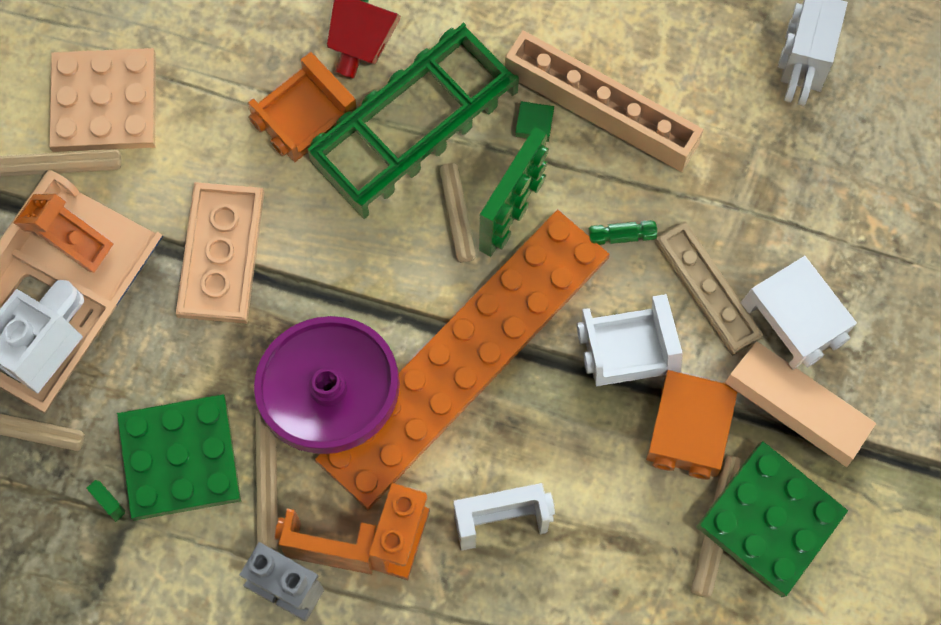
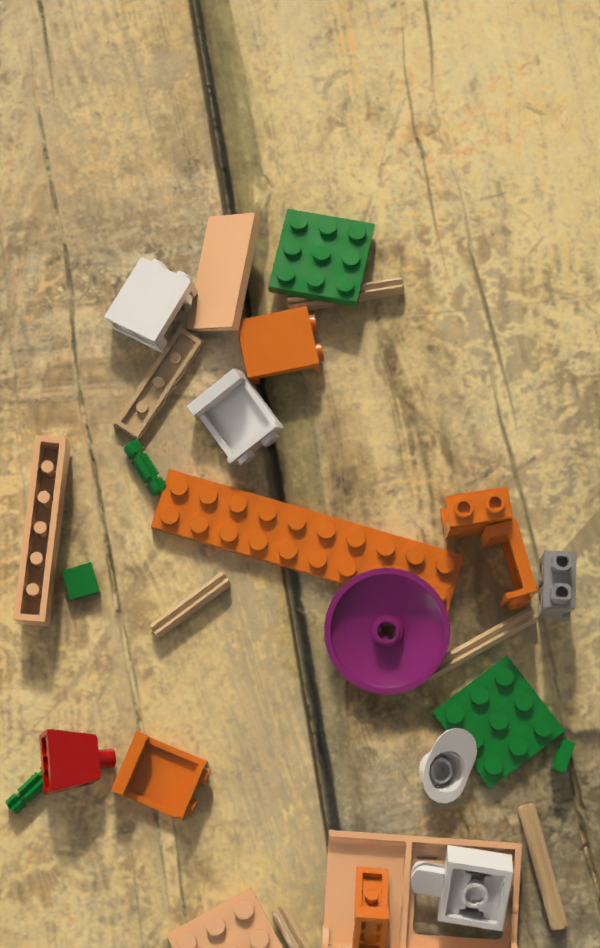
camera: 115 degrees left, 5 degrees up
(158, 376) = (448, 765): none -> white piece
(220, 253) = (316, 780): light nougat tile -> none
(434, 141) = (127, 715): green window -> none
(502, 506) = (417, 452): white panel -> none
(510, 195) = (162, 555): green plate -> none

